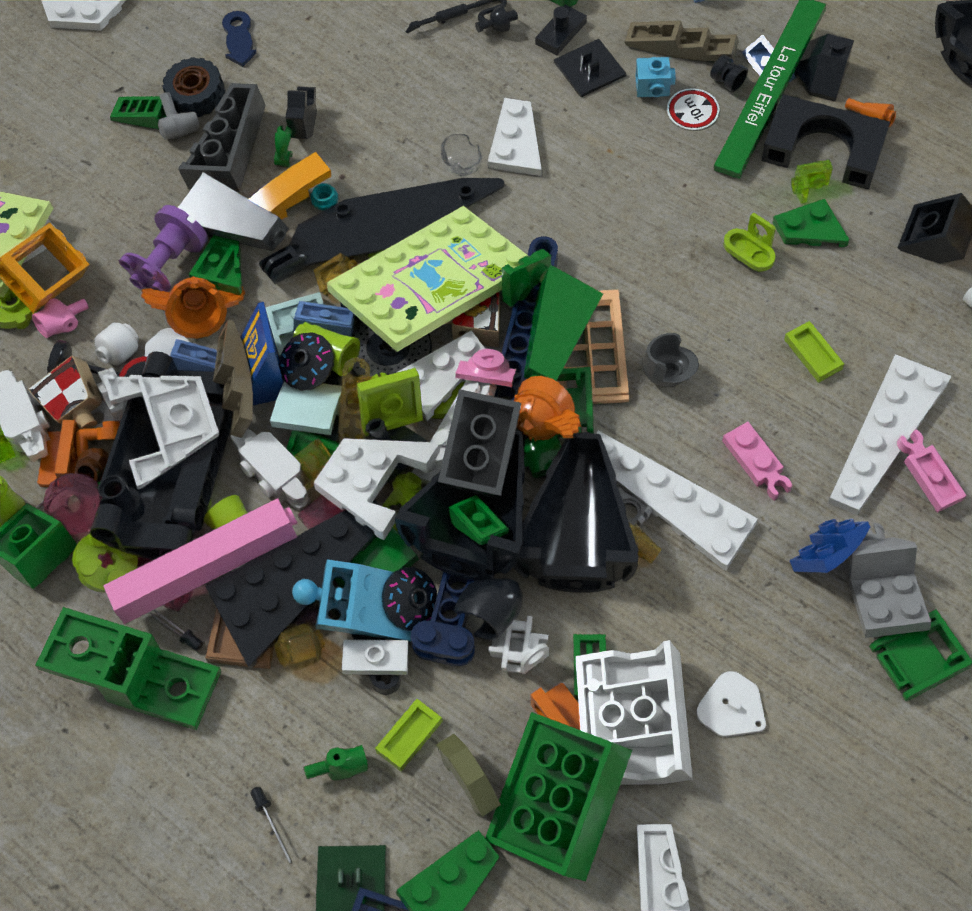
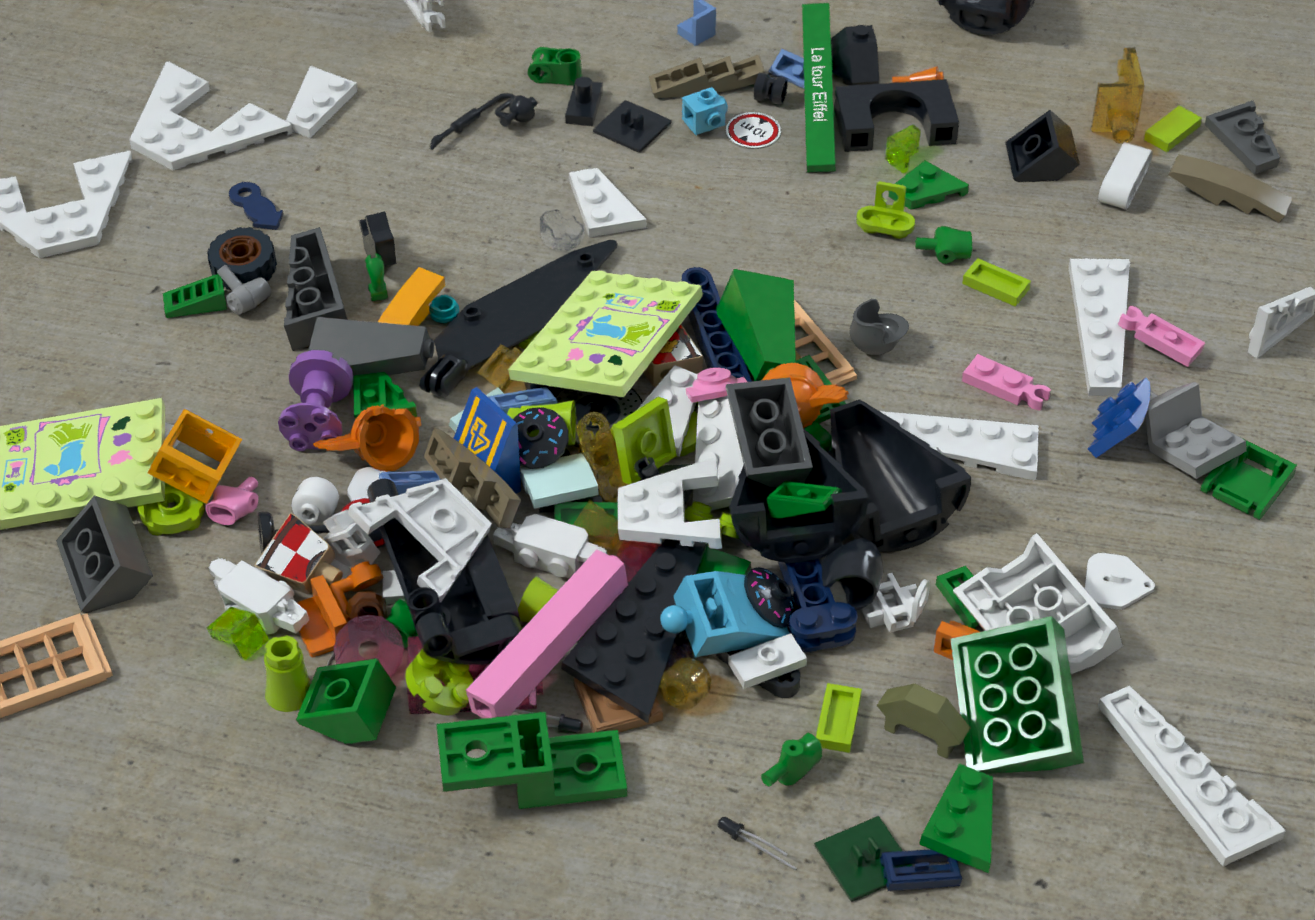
camera: 30 degrees left, 15 degrees down
(520, 280) = (701, 299): green wing -> none
(792, 296) = (948, 244): none -> green piece

